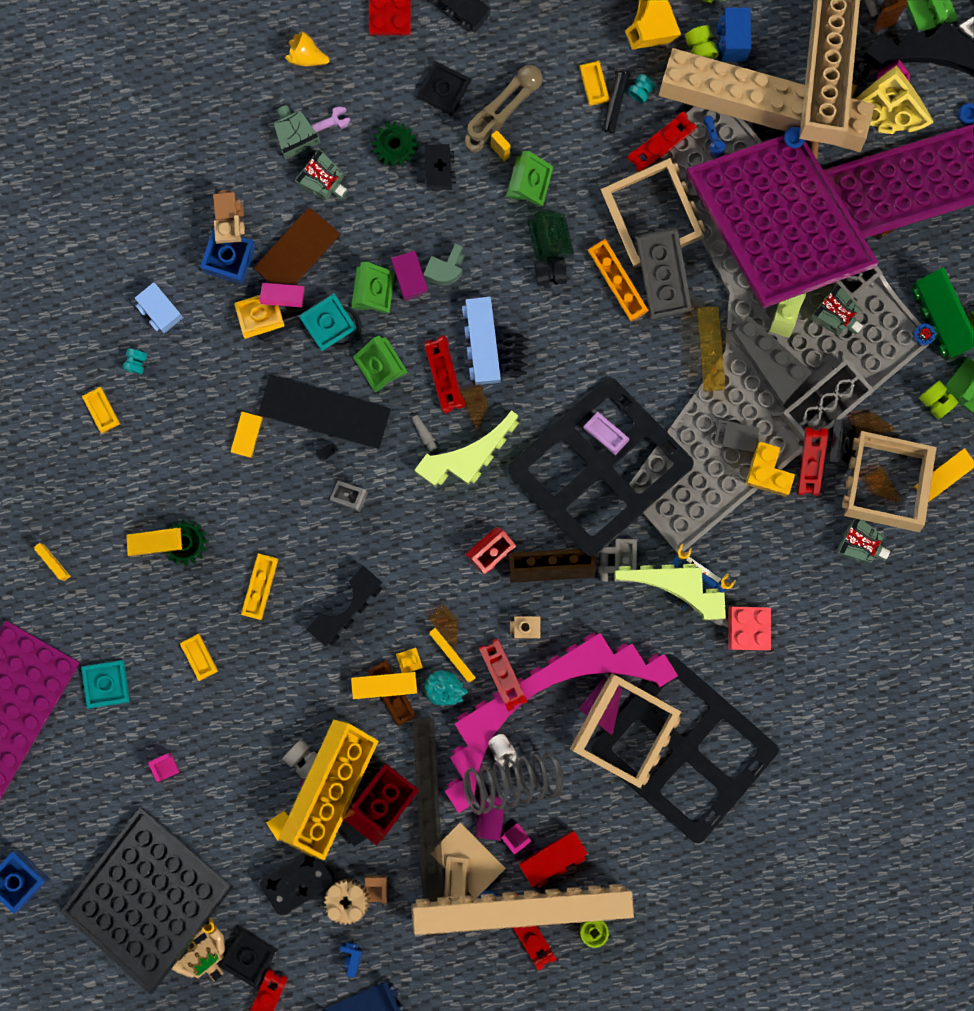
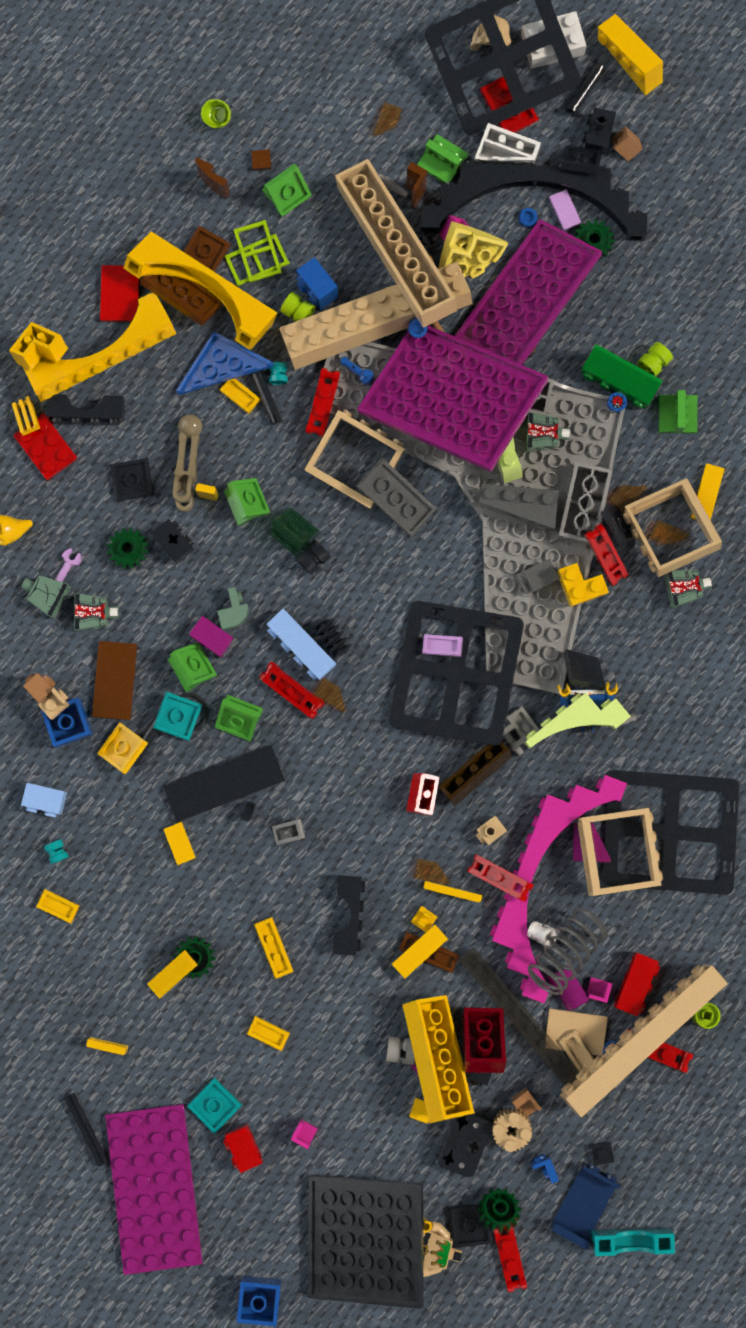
camera: 35 degrees left, 0 degrees up
(101, 739) = (243, 1148): none -> red brick
(275, 971) = (498, 1220): none -> dark green gear
(282, 295) = (128, 721): dark pink tile -> none
(411, 984) = (602, 1153): none -> black plate
(425, 435) = (311, 745): light grey animal -> none
(444, 688) = (464, 920): teal hair -> none
(468, 460) = (356, 742): yellowish green arch -> none
(599, 42) = (220, 362): none -> blue tile
(618, 280) = (366, 526): light orange brick -> none
(711, 349) = (472, 527): clear yellow tile -> none
(715, 548) = (584, 670): none -> black tile
(749, 628) = (651, 709): coral plate -> none
(931, 397) = (655, 441): lime wheel -> none

